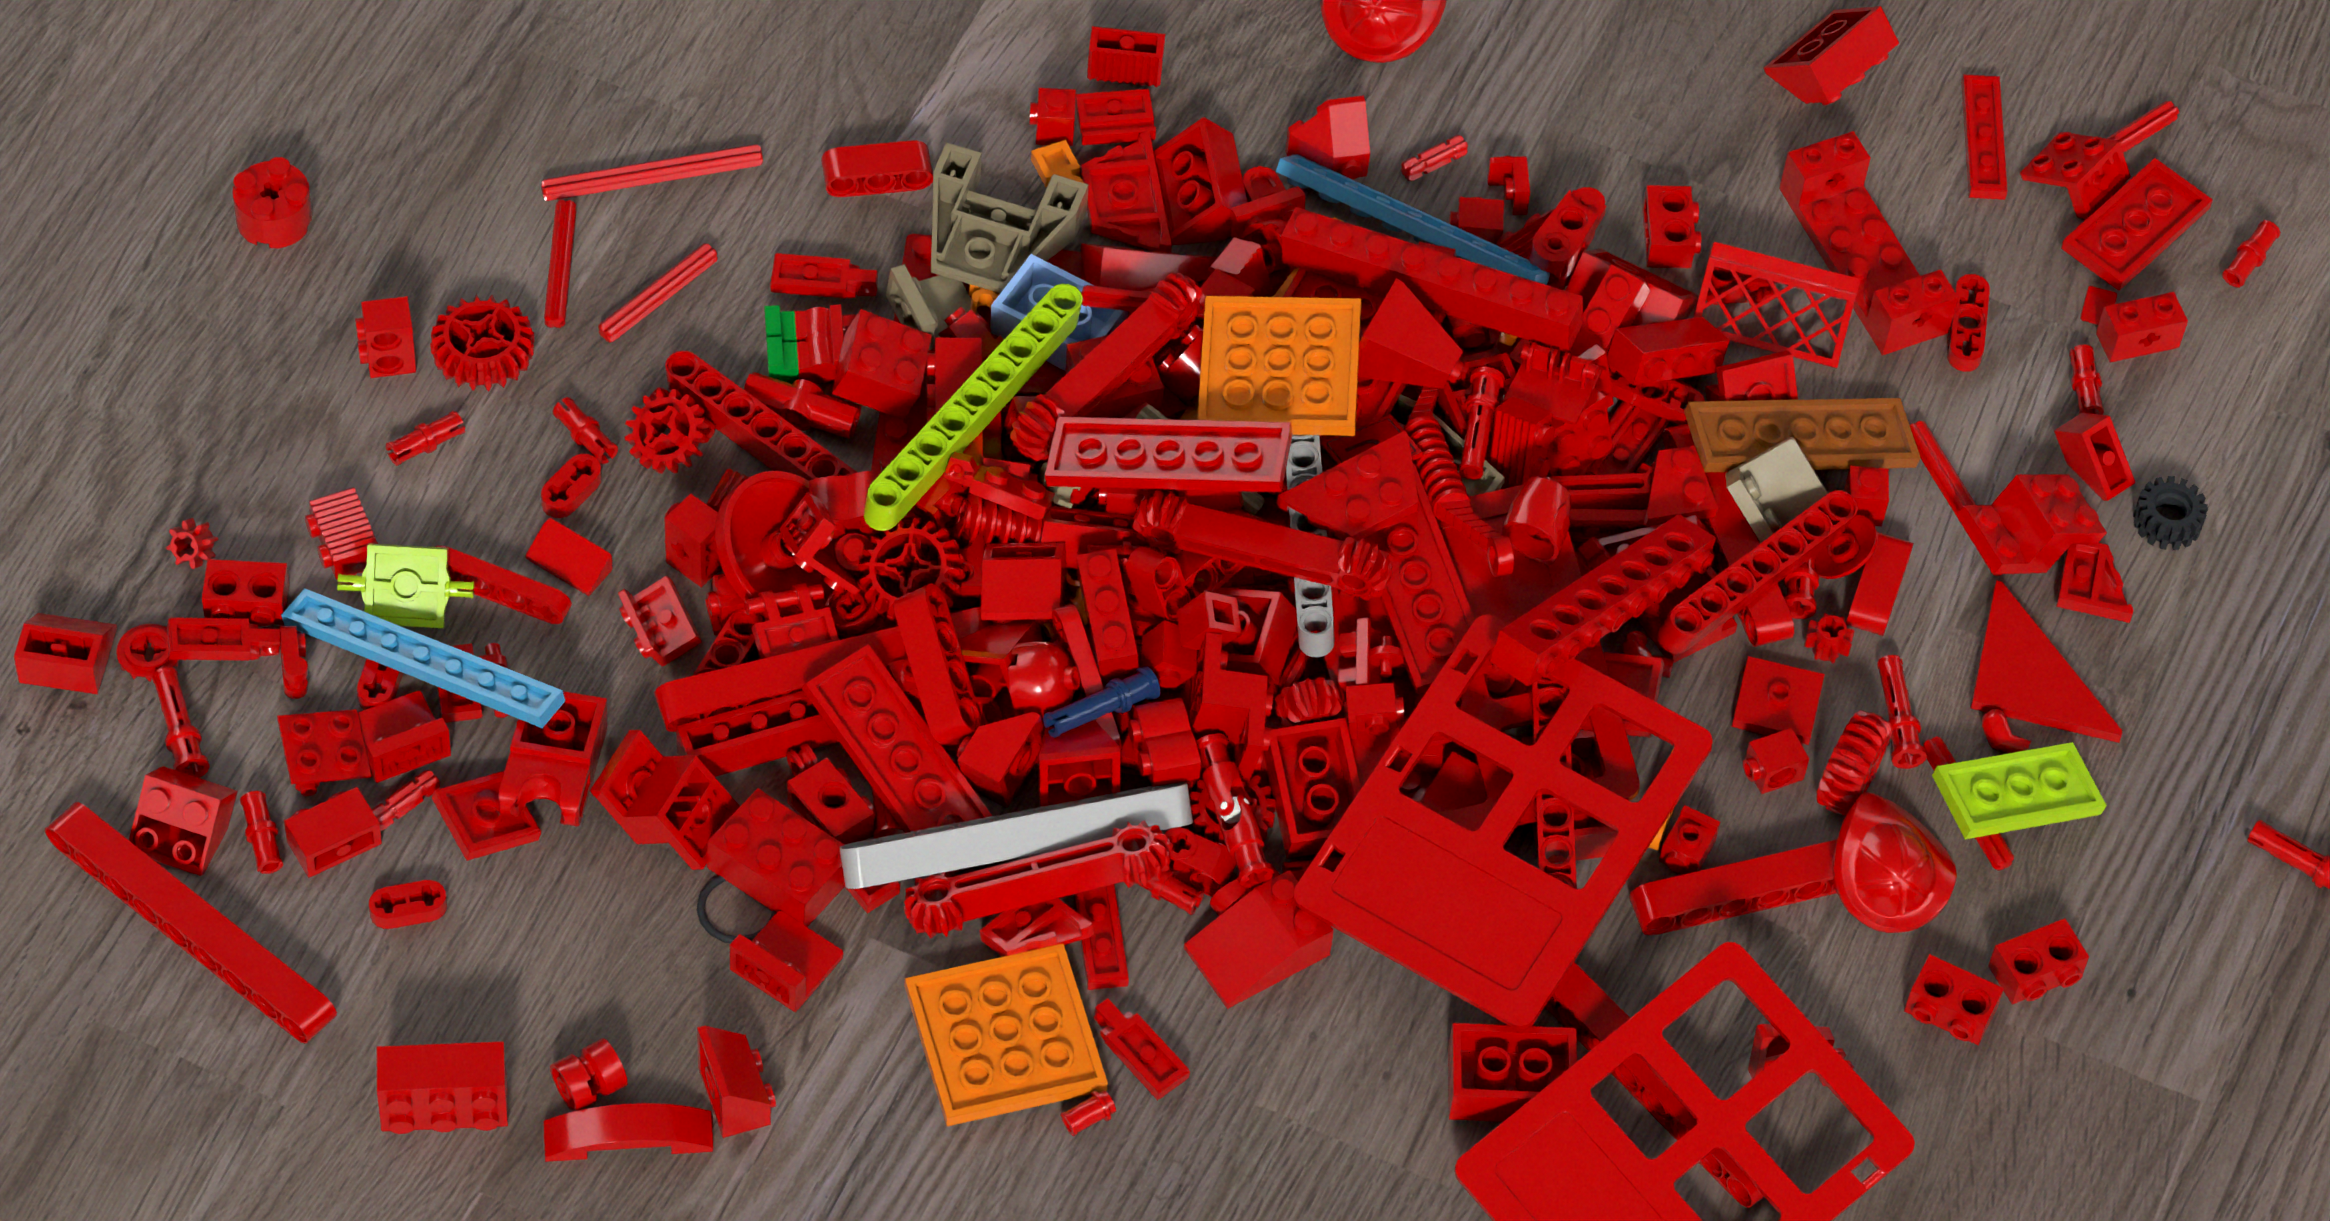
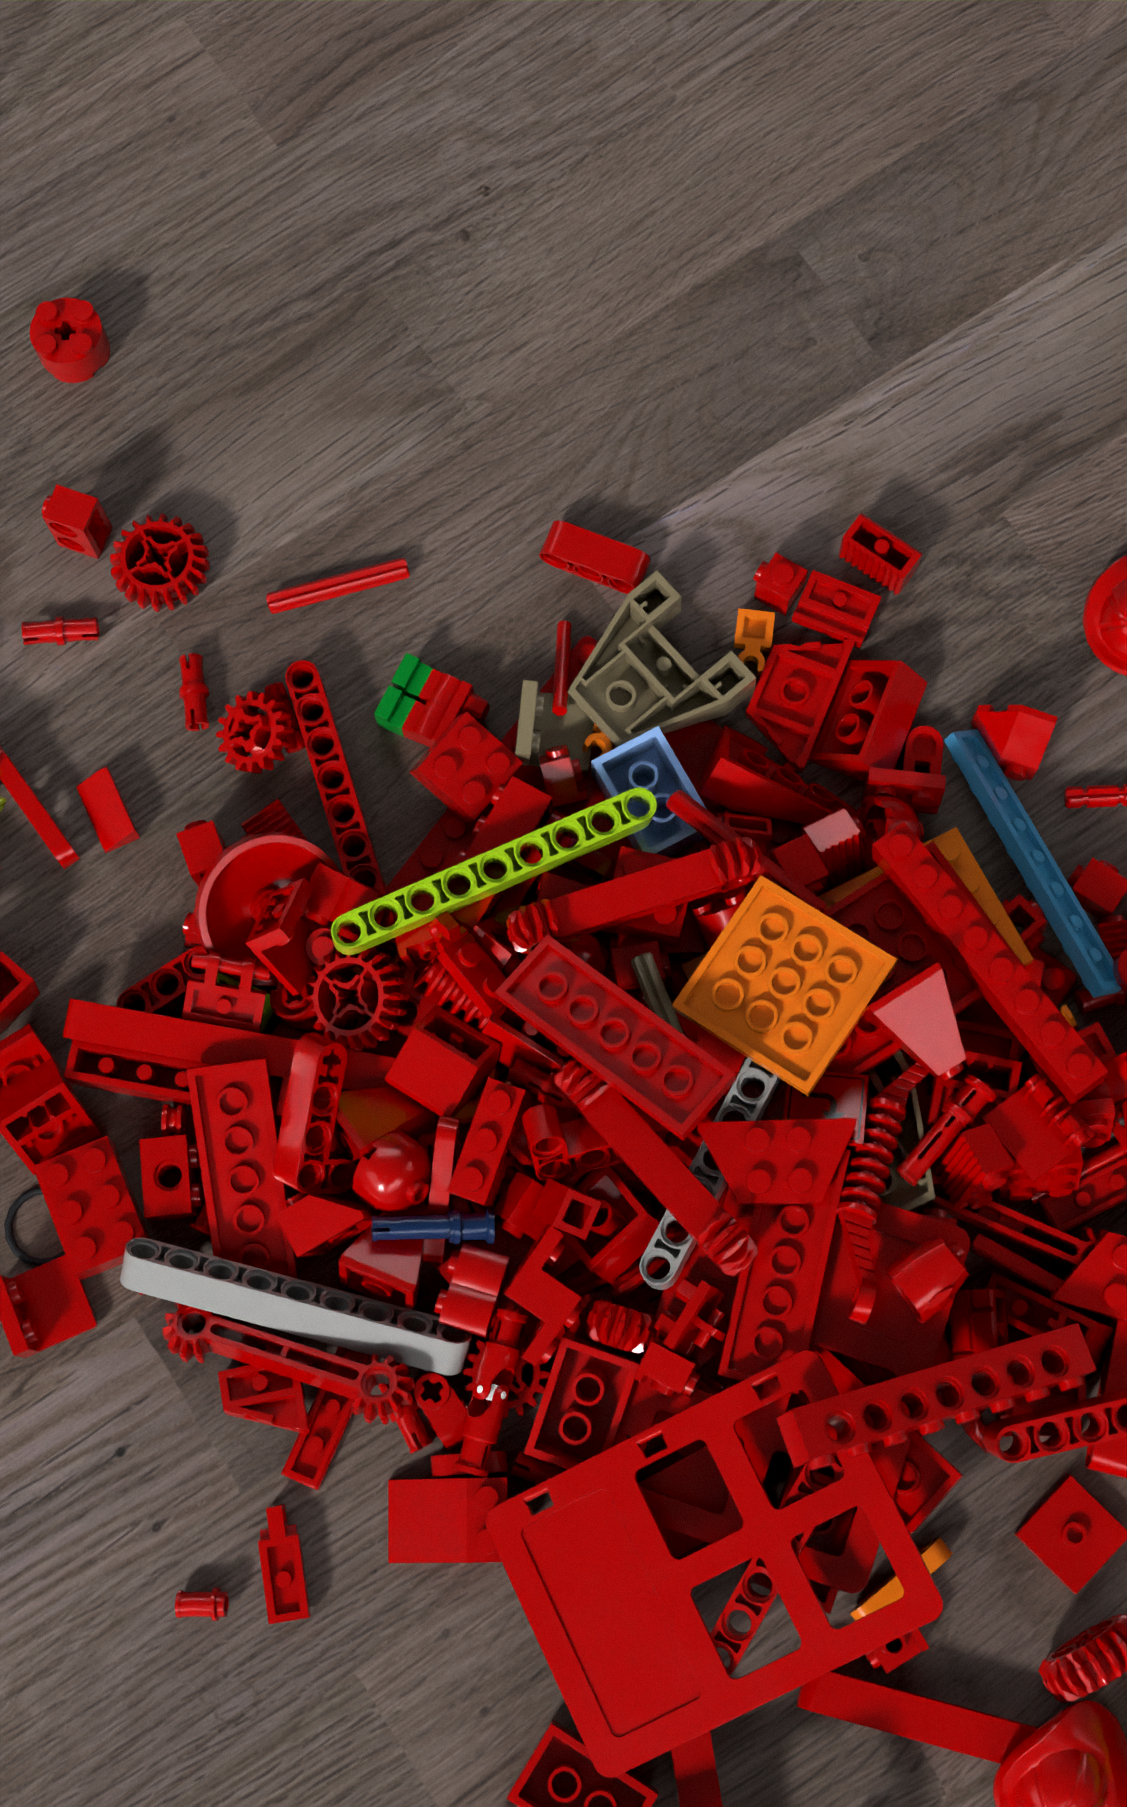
camera: 40 degrees right, 20 degrees up
(560, 264) = (274, 515): red axle -> none
(566, 482) = (149, 731): red beam -> none
(651, 172) = (405, 463): axle -> none
(659, 621) = (137, 914): red bracket -> none
(805, 404) = (385, 762): red piece -> none
(821, 277) = (481, 641): red hinge -> none
(912, 264) = (562, 666): none -> red bar
(1005, 1034) = (179, 1486): orange plate -> none
(1775, 761) = (1026, 1602): red brick -> none

